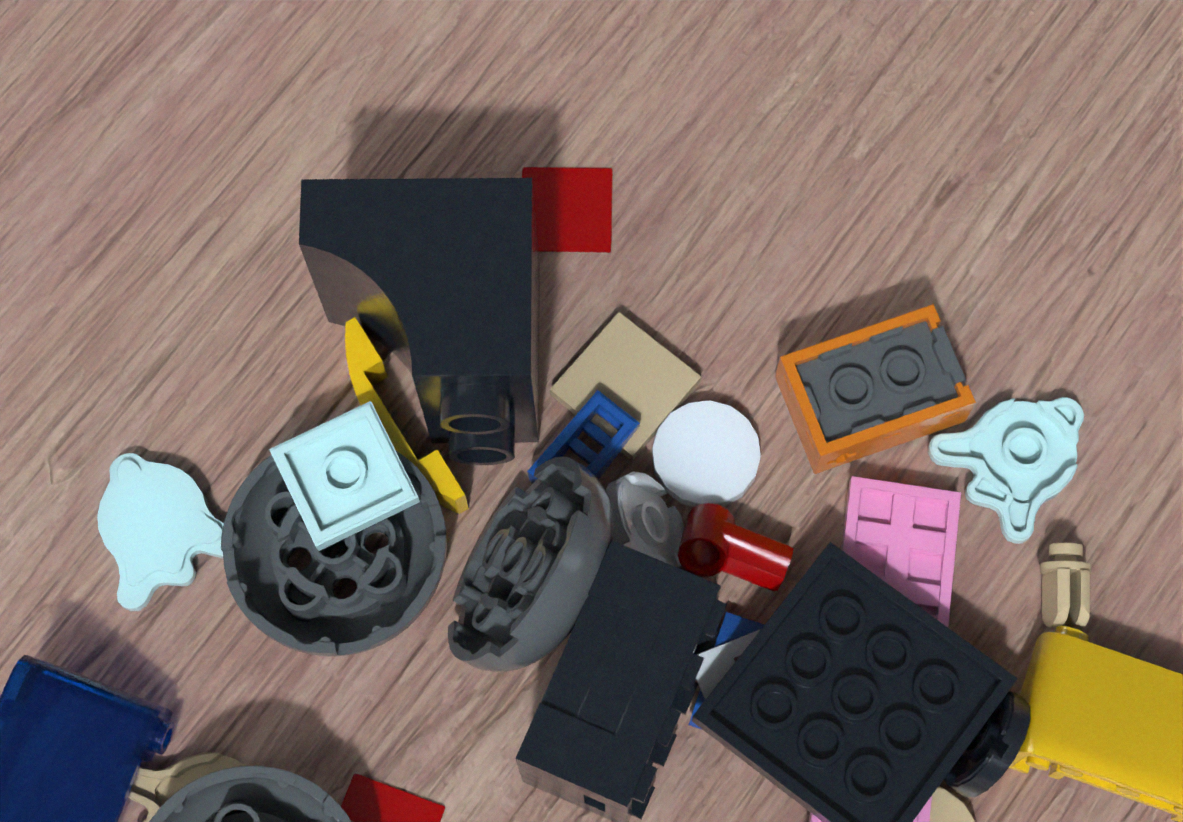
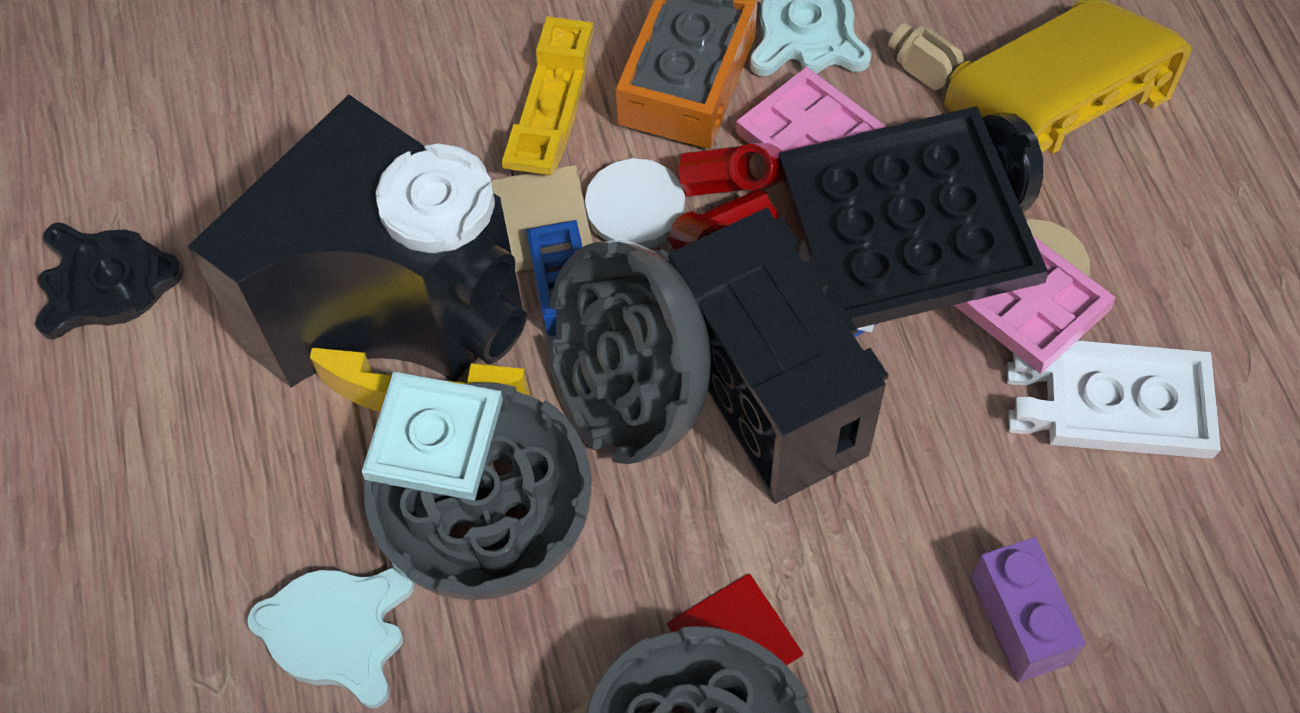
camera: 50 degrees left, 10 degrees down
(305, 101) = (101, 279): none -> black tile
(485, 328) = (435, 198): none -> white tile
(749, 305) = (553, 97): none -> yellow slope
(795, 510) = (727, 169): none -> red piece

